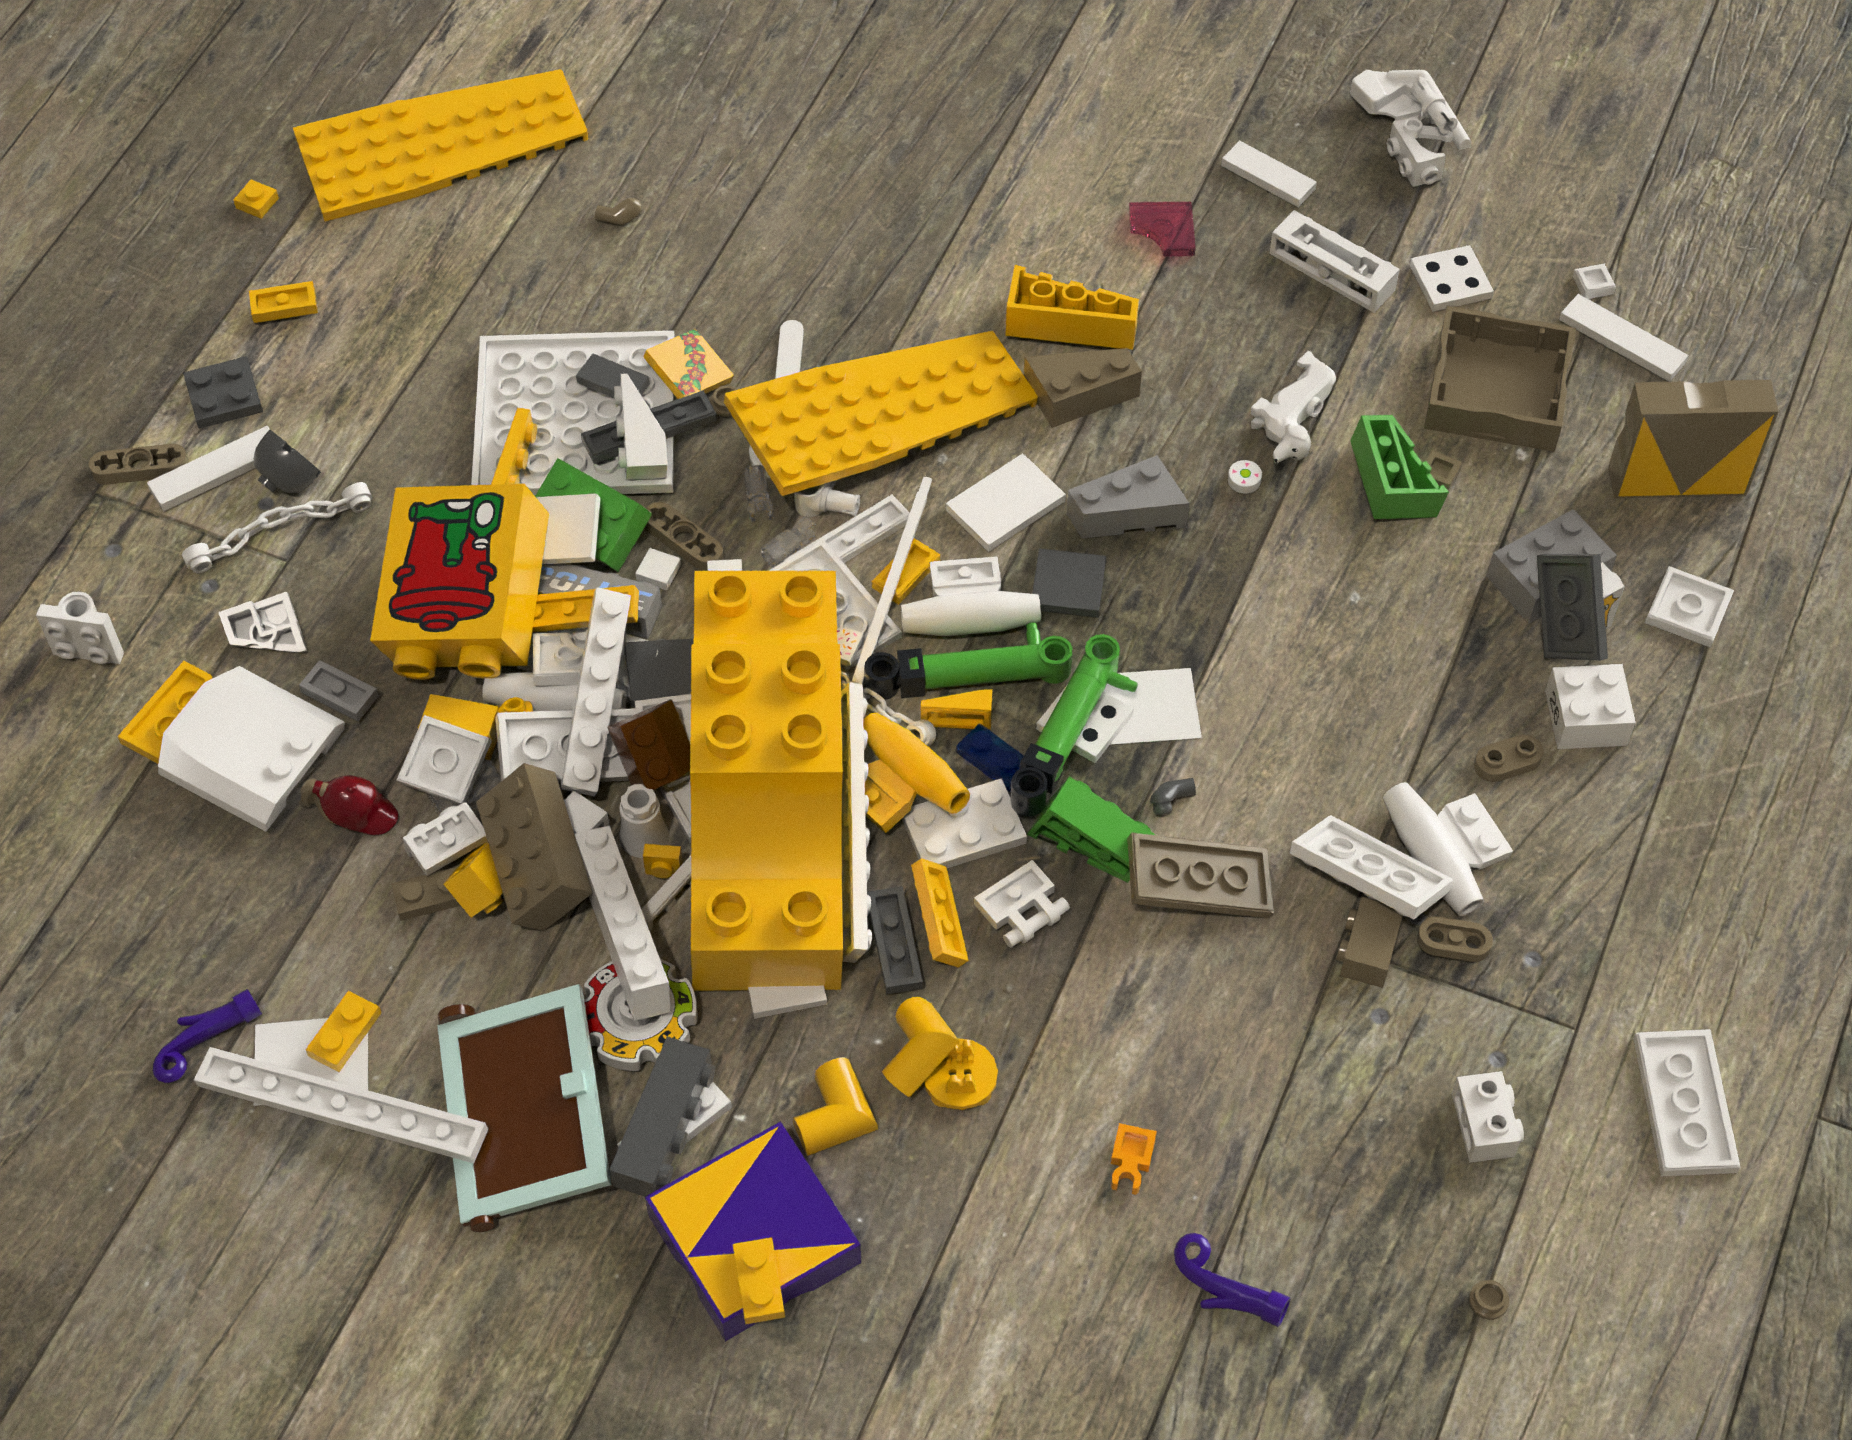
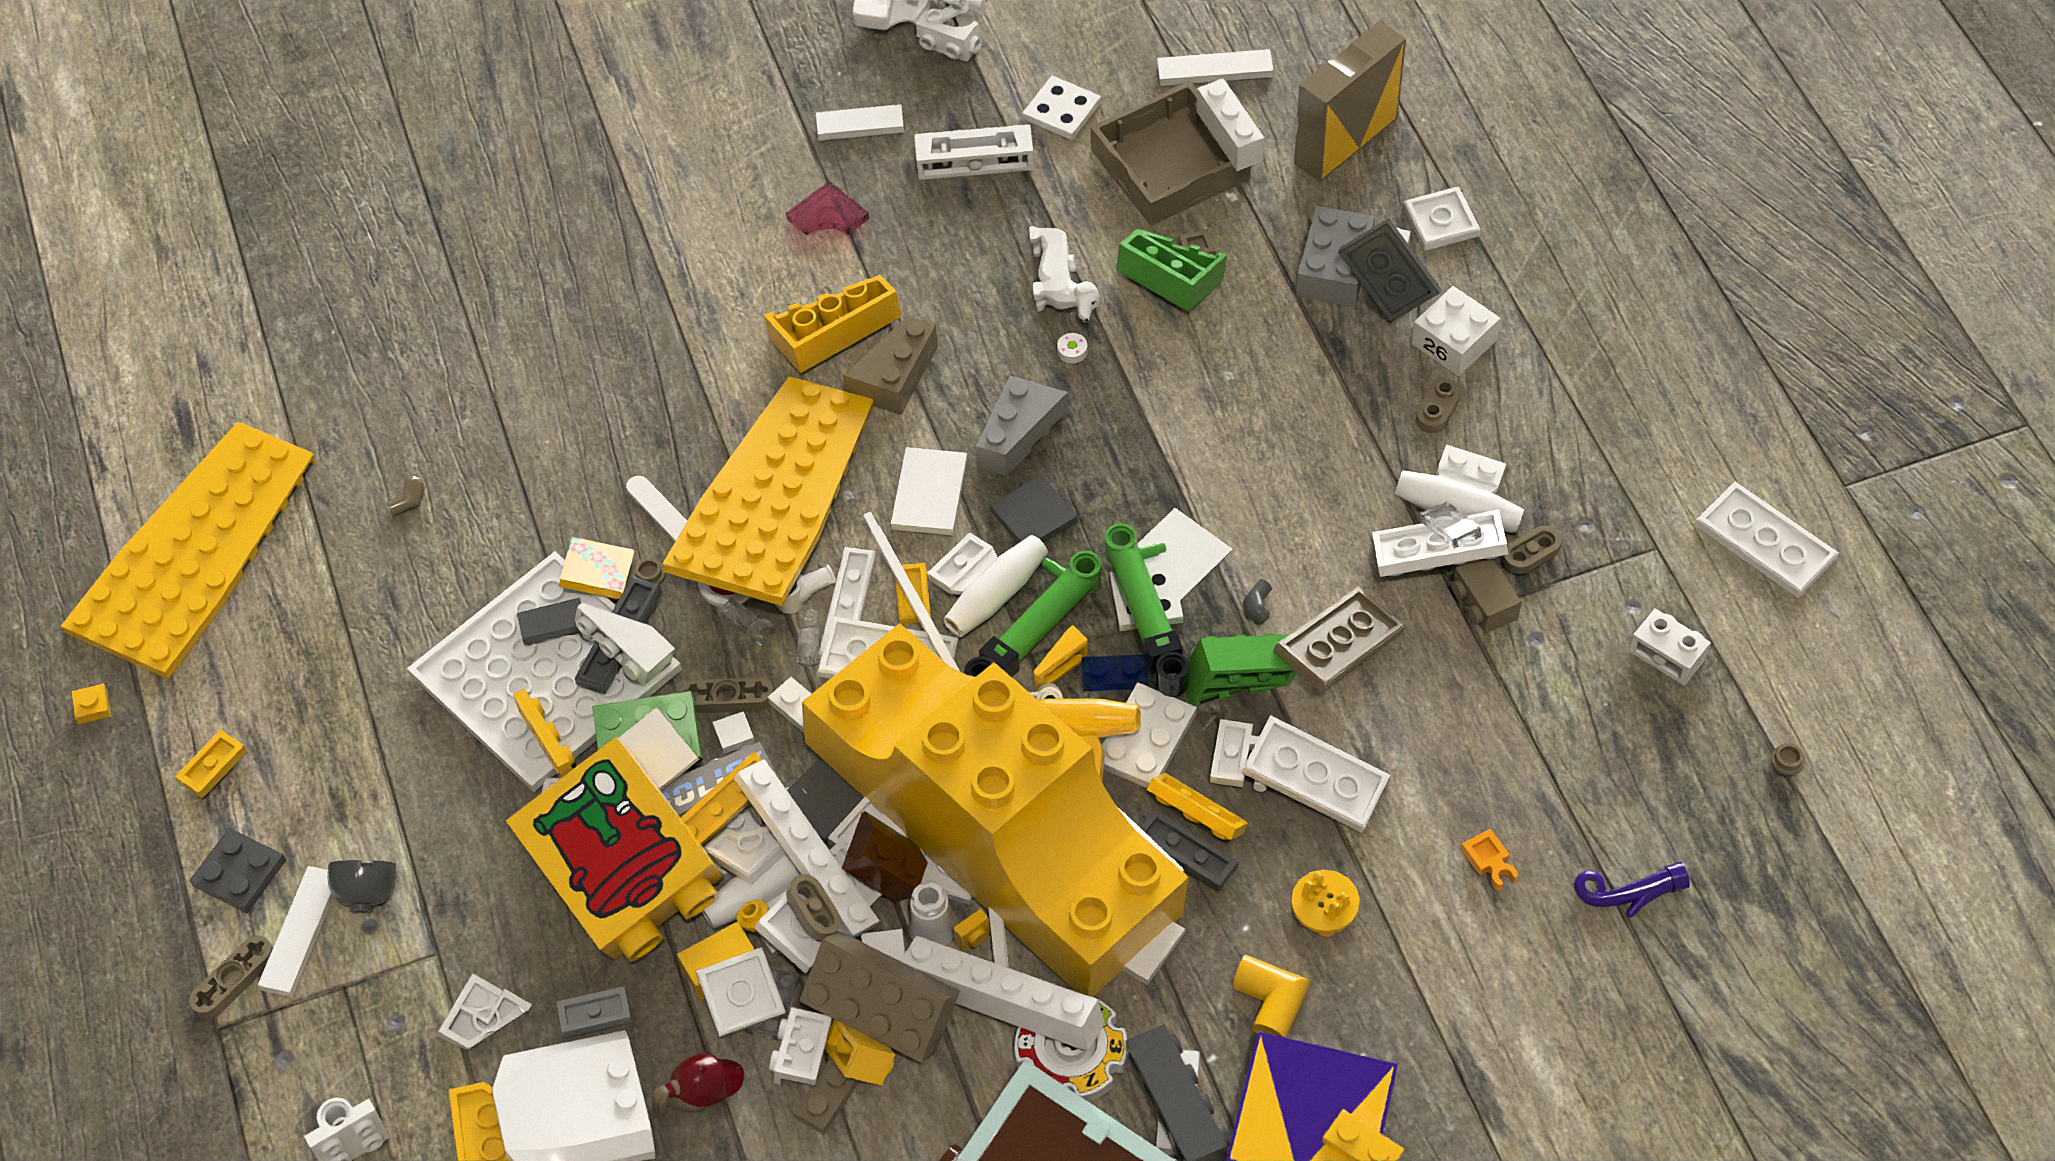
camera: 40 degrees left, 0 degrees up
(199, 556) = (367, 1005): white piece -> none
(551, 739) = (815, 908): none -> dark tan plate
(927, 1045) = (1294, 898): yellow brick -> none
(1062, 967) = (1316, 774): none -> white tile
(1393, 857) = (1451, 524): none -> clear tile
(1564, 385) = (1230, 124): none -> white brick
(1594, 281) = (1156, 42): white tile -> none

